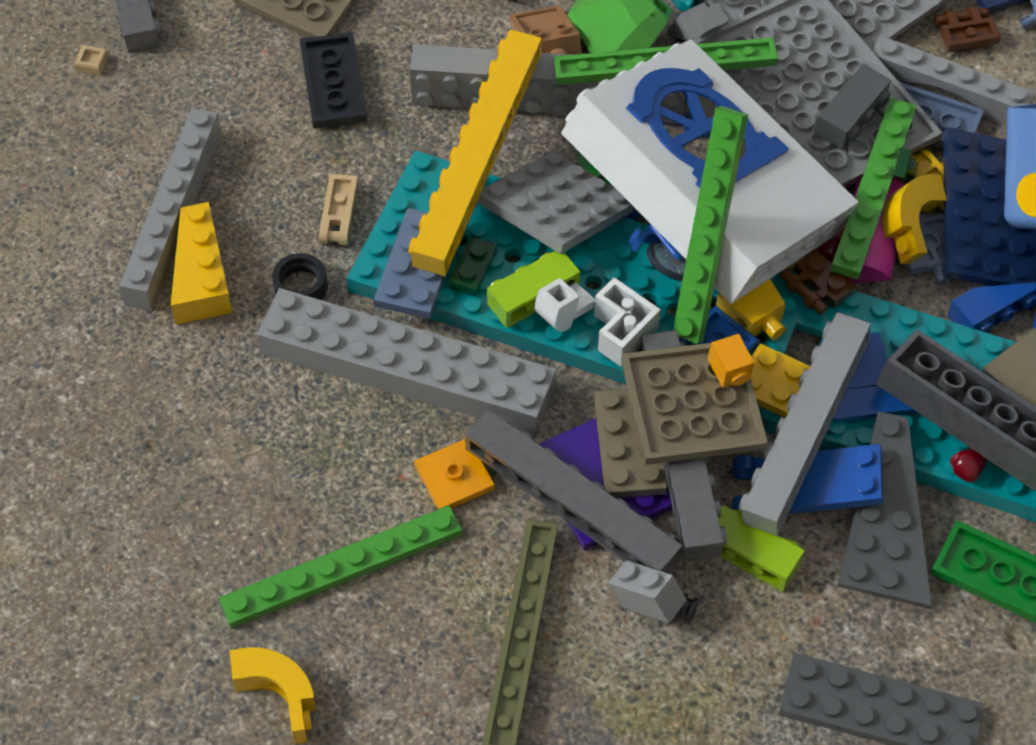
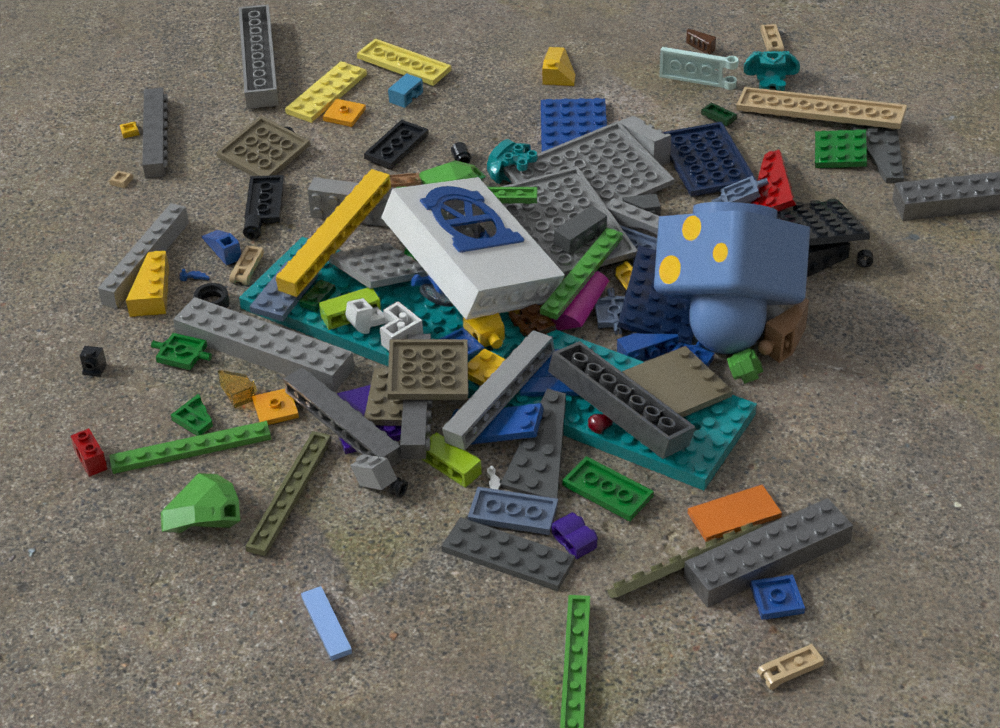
camera: 10 degrees right, 15 degrees down
(144, 422) = (93, 361): none -> black brick
(186, 599) = (89, 452): none -> red brick
(258, 234) = (193, 274): none -> blue piece
(273, 671) = (131, 495): yellow arch -> none
(279, 386) = (181, 351): none -> green plate
(292, 176) = (224, 246): none -> blue slope
(328, 136) = (252, 226): none -> black brick
(332, 510) = (193, 416): none -> green wing
(386, 448) = (237, 387): none -> clear yellow slope
(396, 680) = (204, 503): none -> bright green brick
(698, 21) = (499, 178): light grey slope -> none
(710, 223) = (454, 264): bright green plate -> none
(730, 361) = (455, 346): light orange brick -> none
(826, 581) = (494, 482): none -> white piece
(871, 631) = (513, 510): none -> sand blue plate
(903, 211) = (607, 280): yellow arch -> none
(905, 166) = (606, 265): dark green plate -> none
(927, 37) = (646, 202): none -> dark grey slope
(970, 32) = (676, 202): reddish brown plate -> none
(975, 667) = (574, 535): none -> dark purple brick

